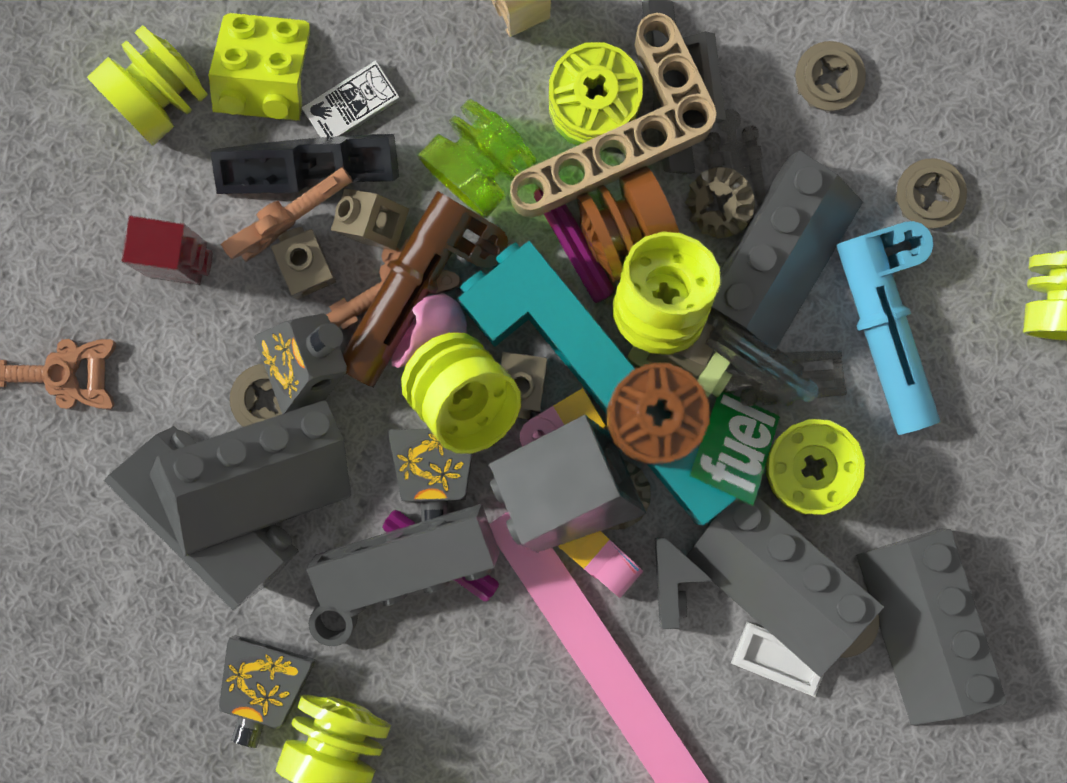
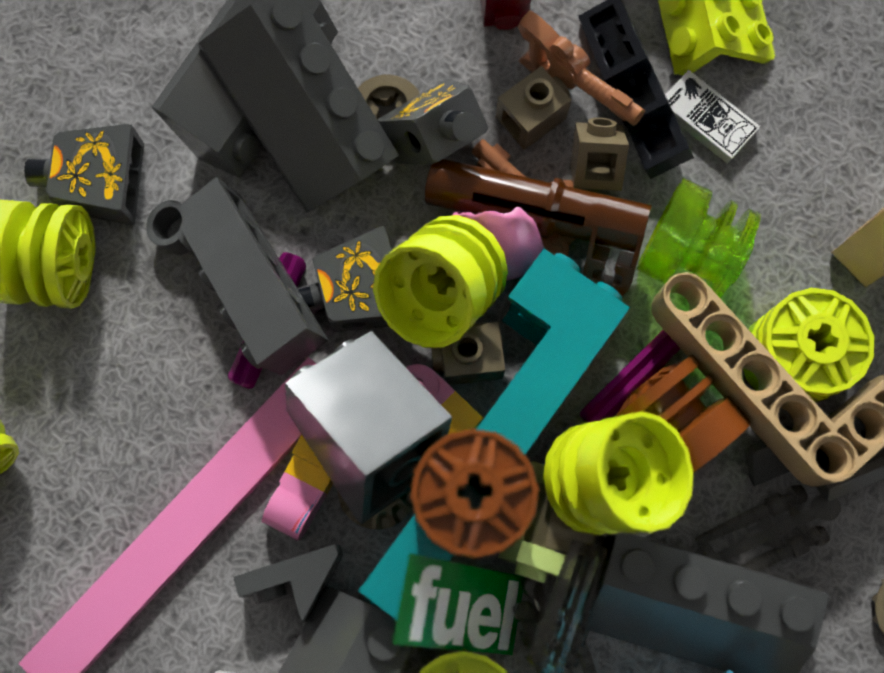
camera: 75 degrees right, 10 degrees down
(737, 210) = (733, 541): dark tan gear -> none

